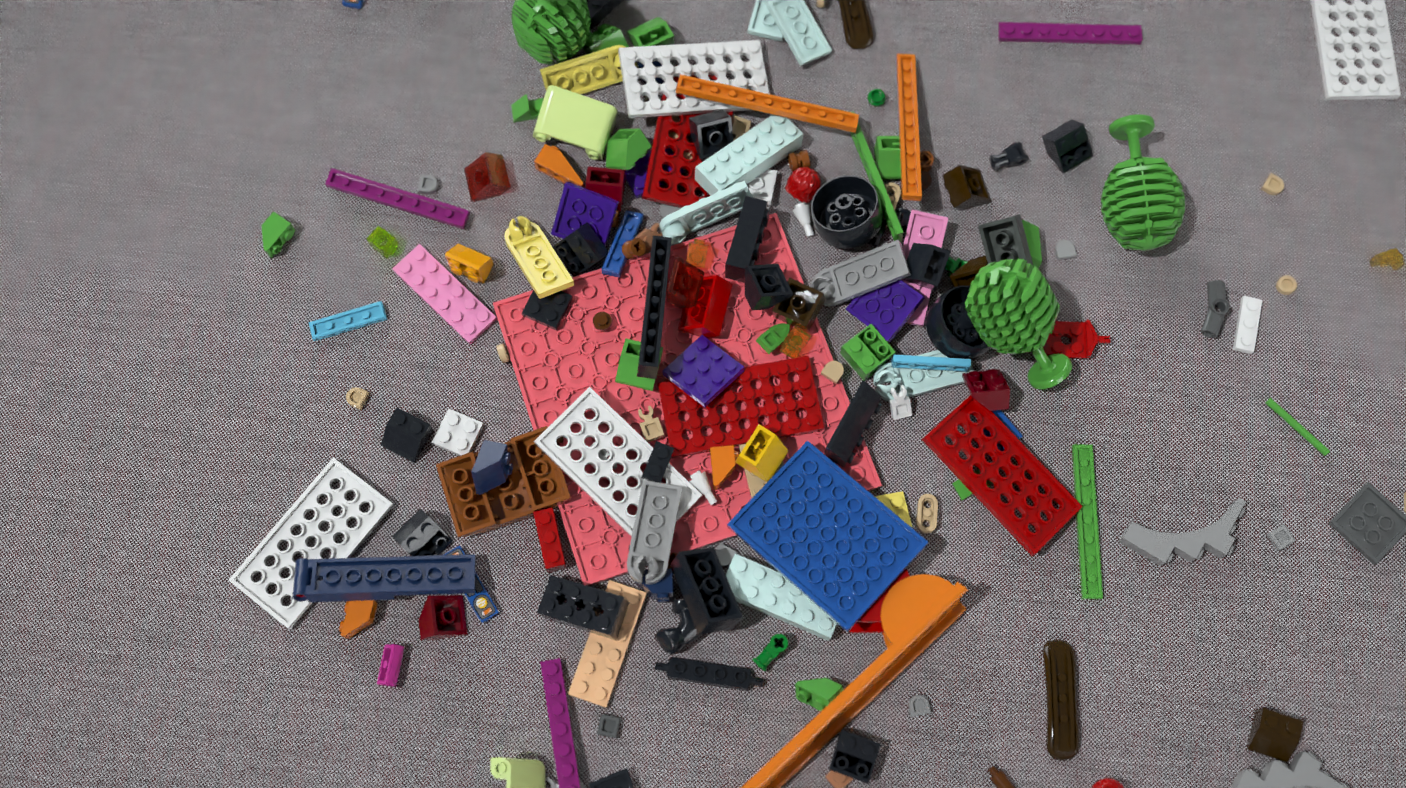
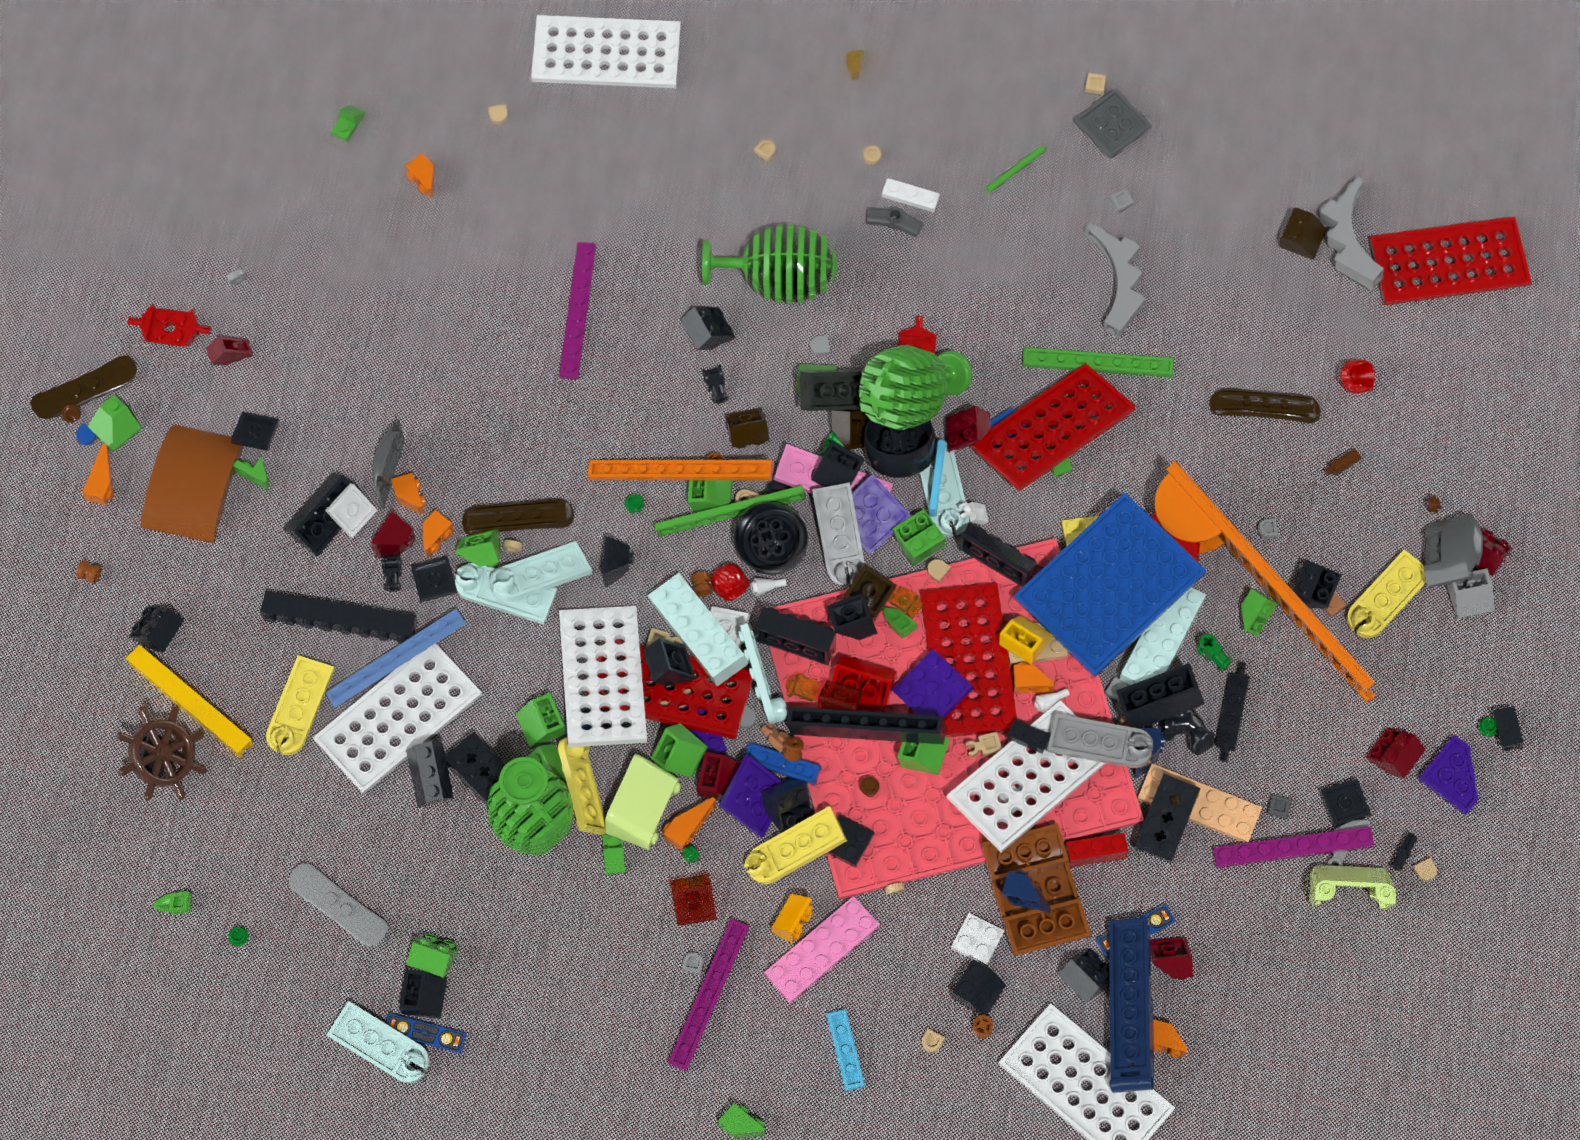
camera: 85 degrees left, 5 degrees down
(367, 438) = (982, 1022): none -> dark orange wheel
(380, 235) = (757, 1017): clear neon green brick -> none
(390, 665) = (1215, 1009): dark pink brick -> none
(530, 172) = (690, 854): none -> green plate
(767, 103) = (644, 603): orange plate -> none
(812, 81) = (616, 560): none -> black slope
(927, 514) = (1085, 499): tan plate -> none

